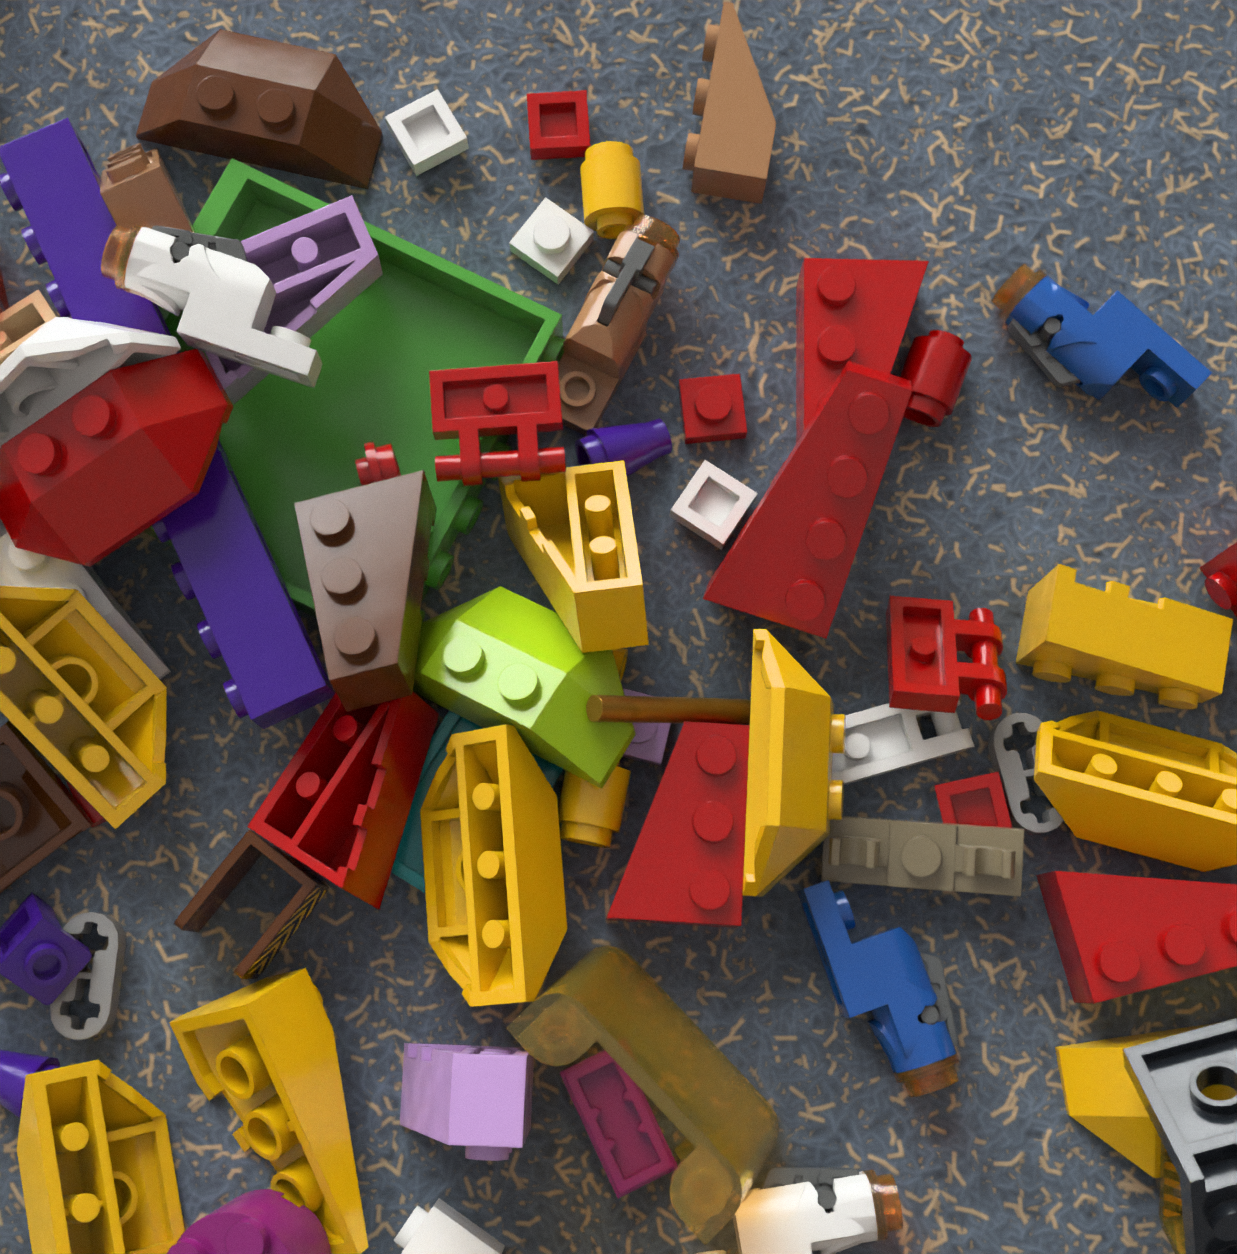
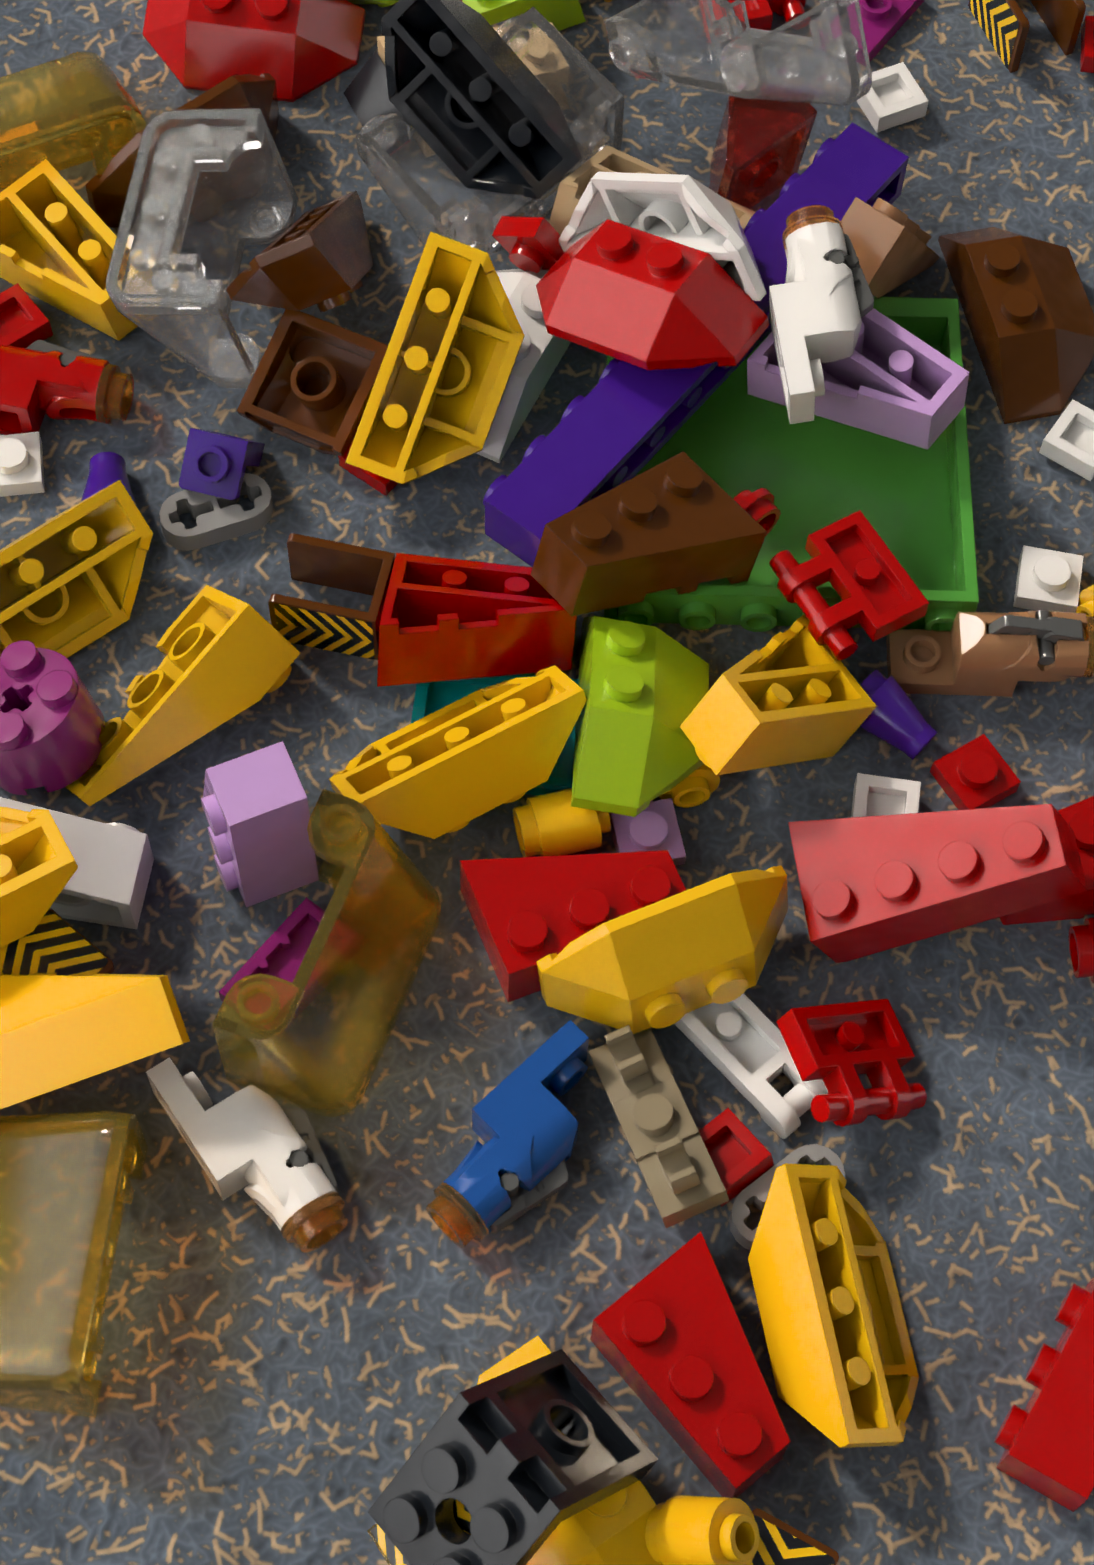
camera: 65 degrees right, 15 degrees down
(667, 709) = (663, 815): pearl gold bar -> none
(1123, 641) = (962, 1219): yellow wedge -> none

